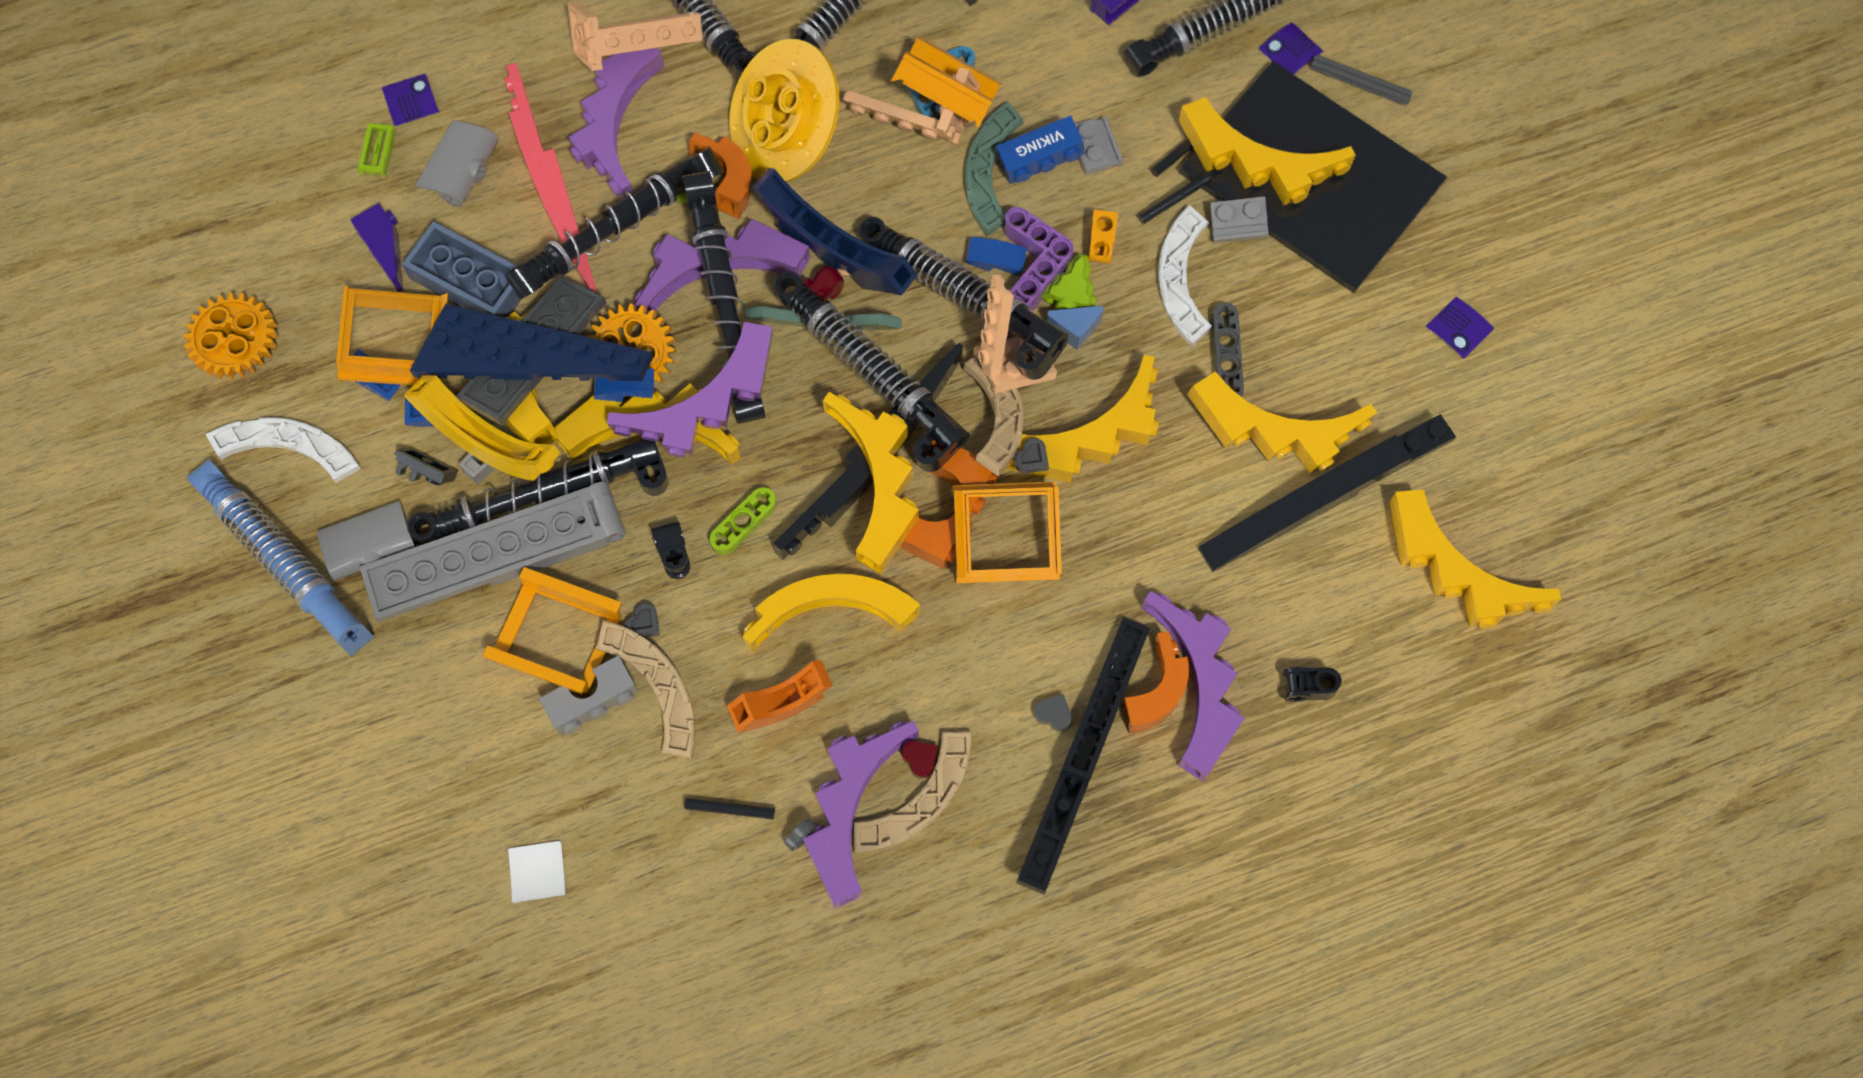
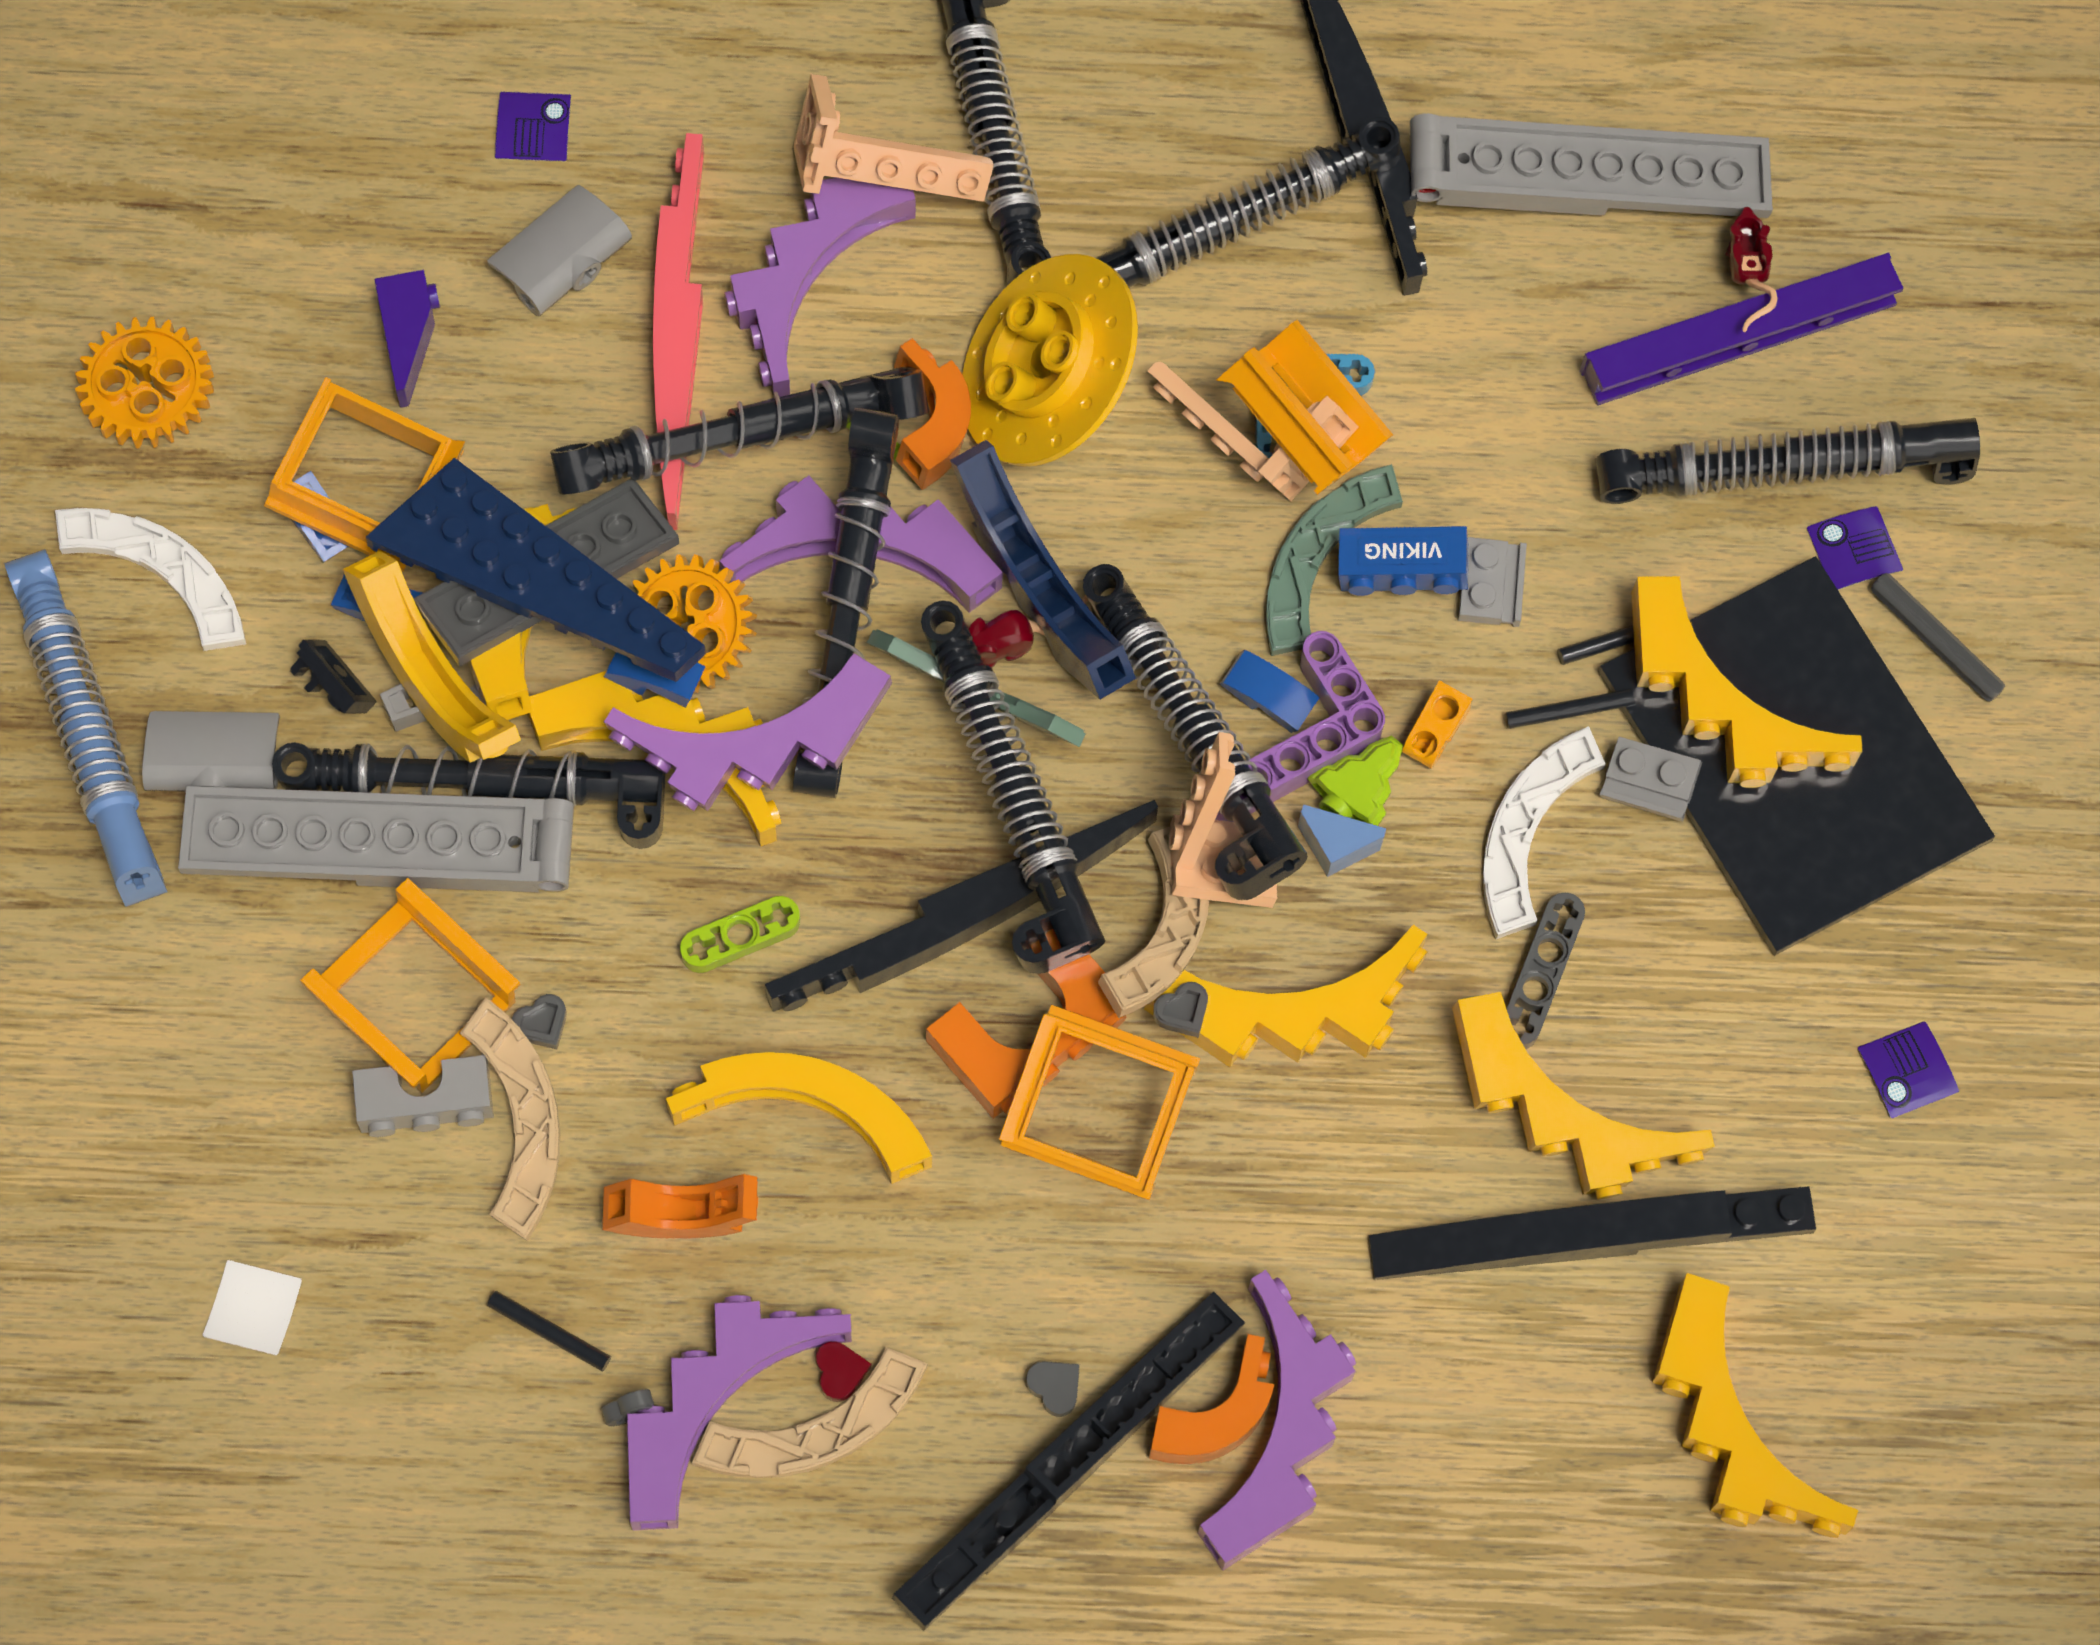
camera: 20 degrees right, 0 degrees up
(386, 153) = (438, 211): lime tile -> none
(463, 270) = (498, 417): sand blue brick -> none
(671, 546) = (624, 928): black piece -> none
(879, 441) = (942, 1014): yellow arch -> none
(1304, 683) = (1433, 1496): black piece -> none

